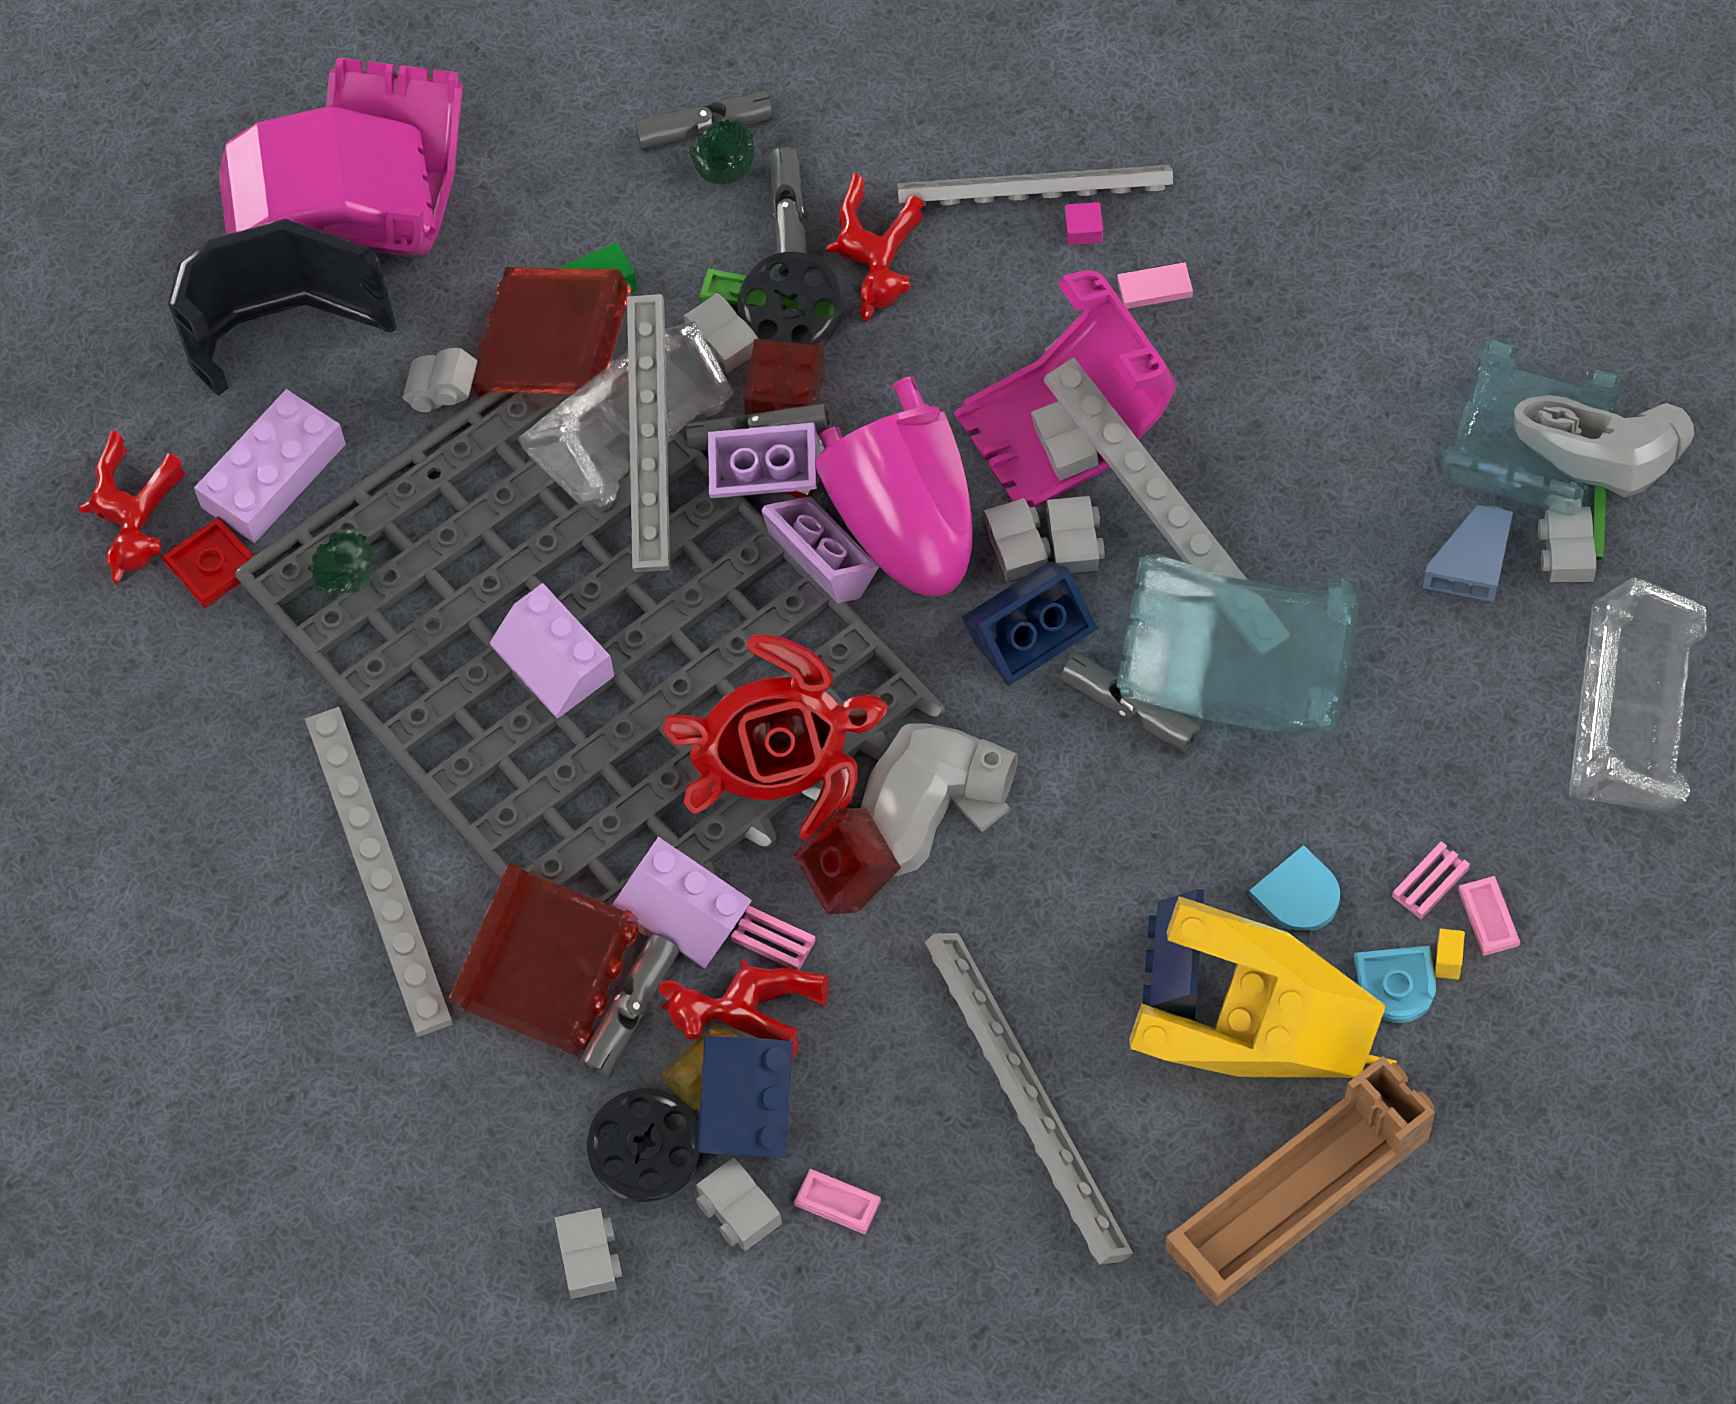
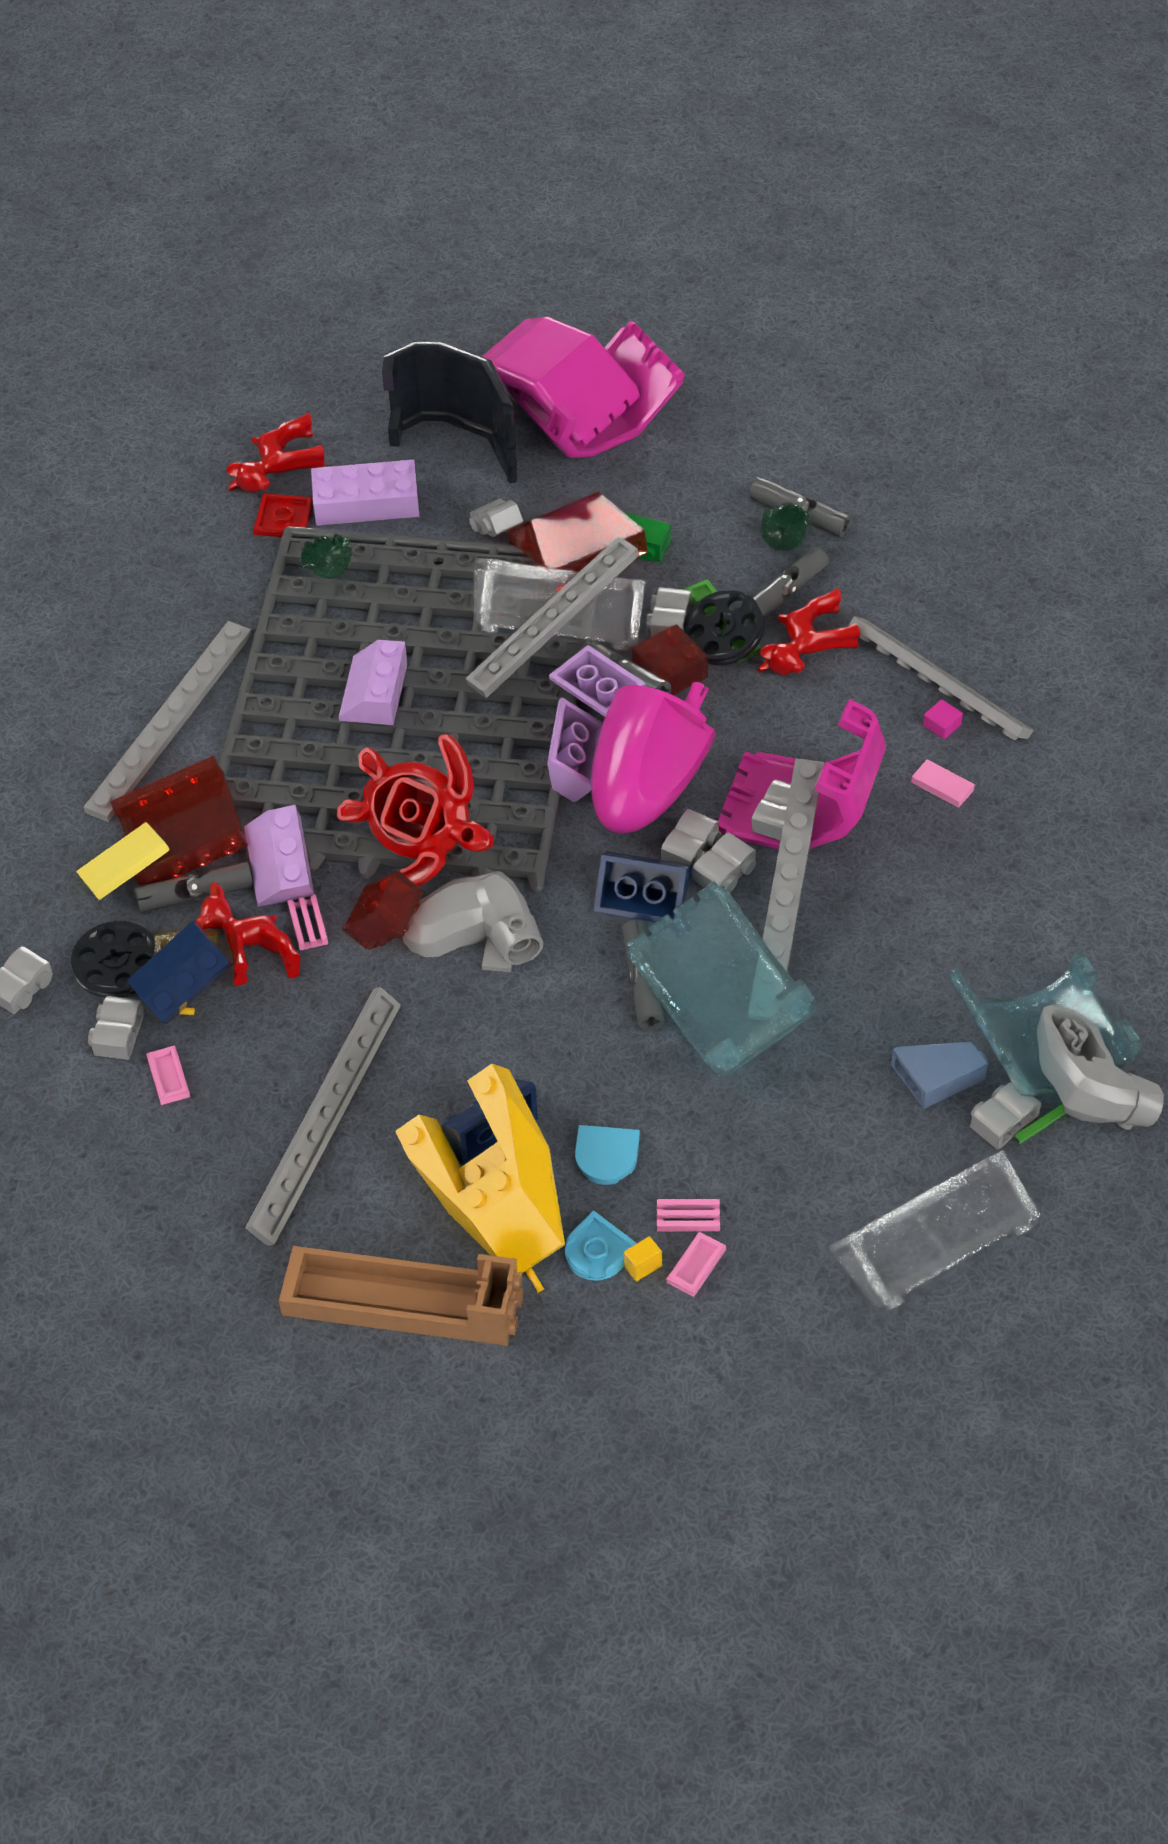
camera: 45 degrees right, 10 degrees down
(536, 1046) = (122, 860): none -> light yellow tile

